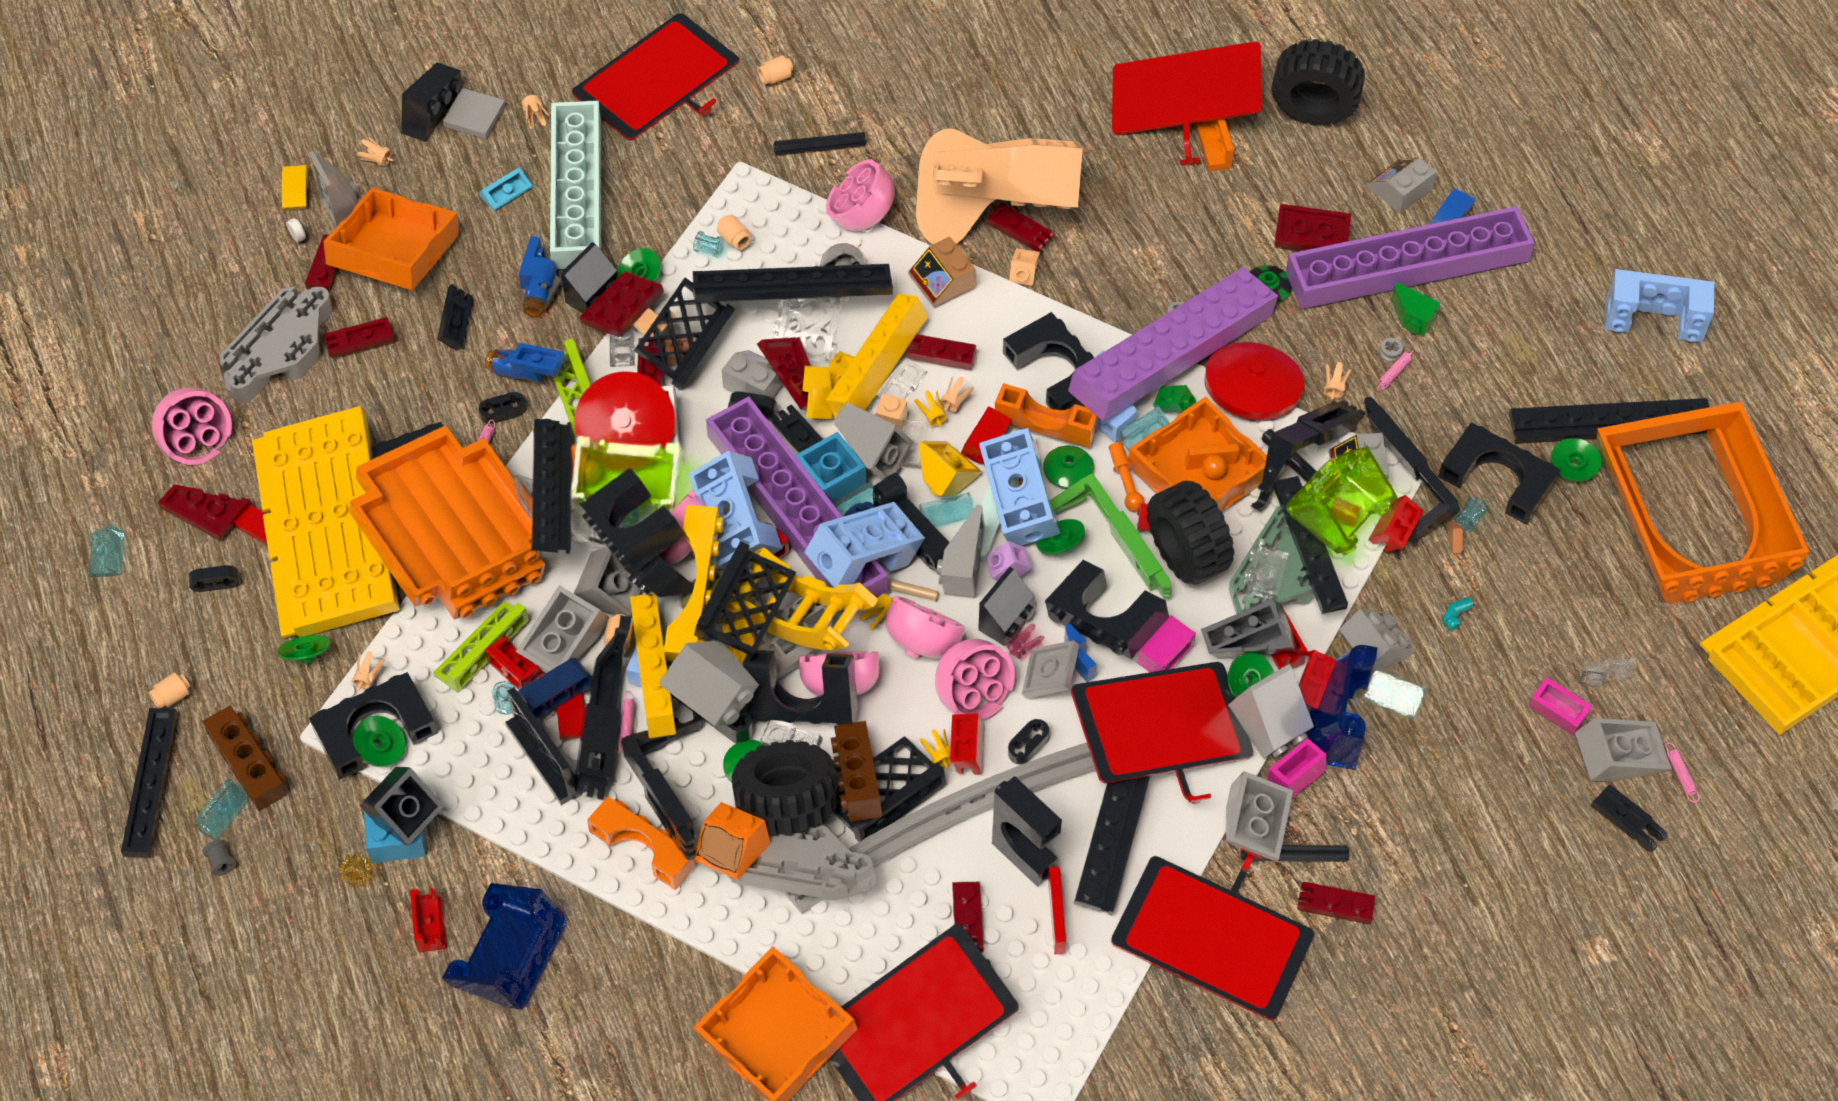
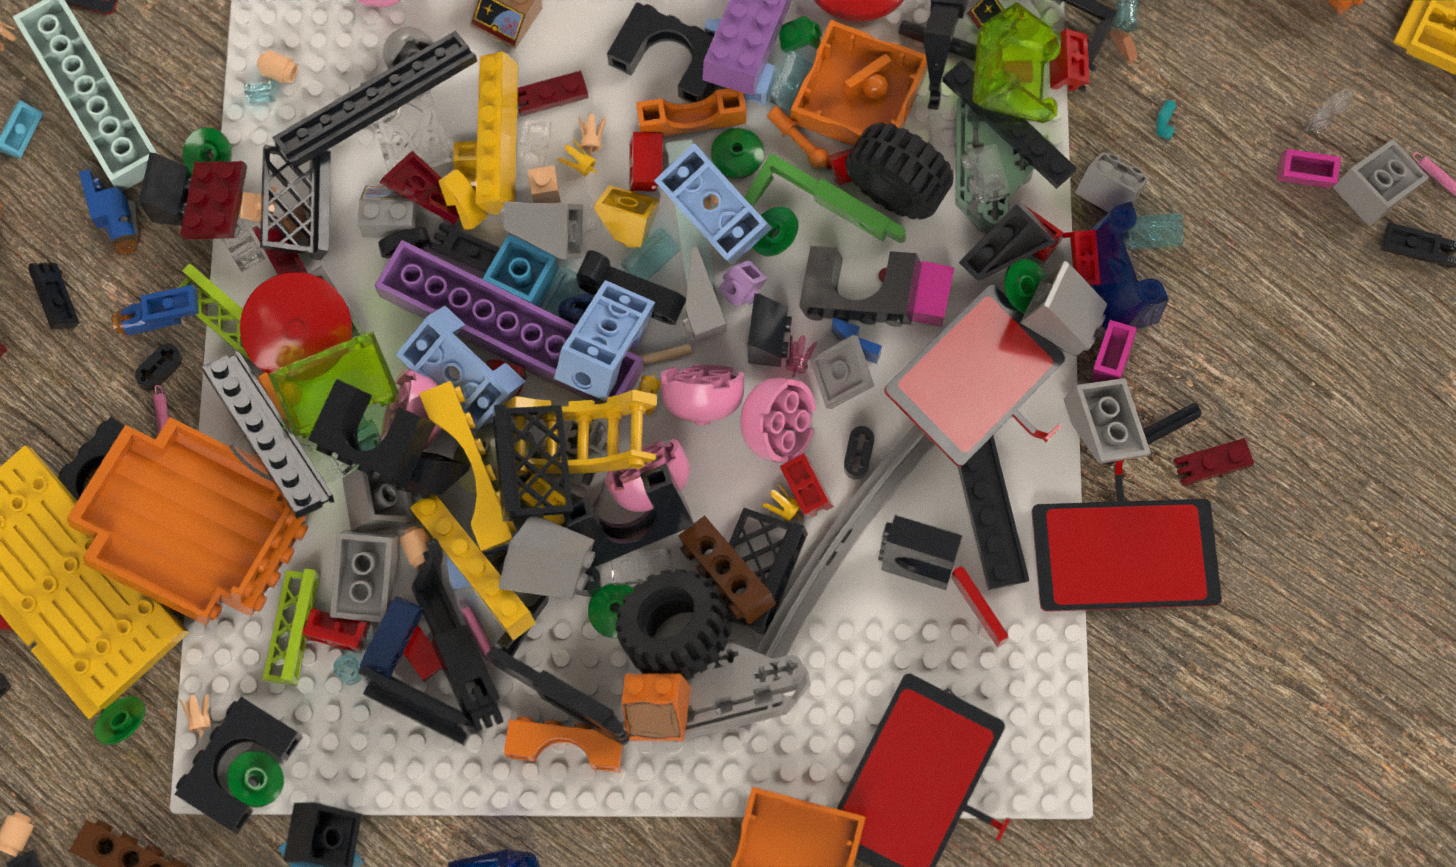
camera: 25 degrees left, 15 degrees up
(968, 910) = (900, 650): dark red hinge -> none

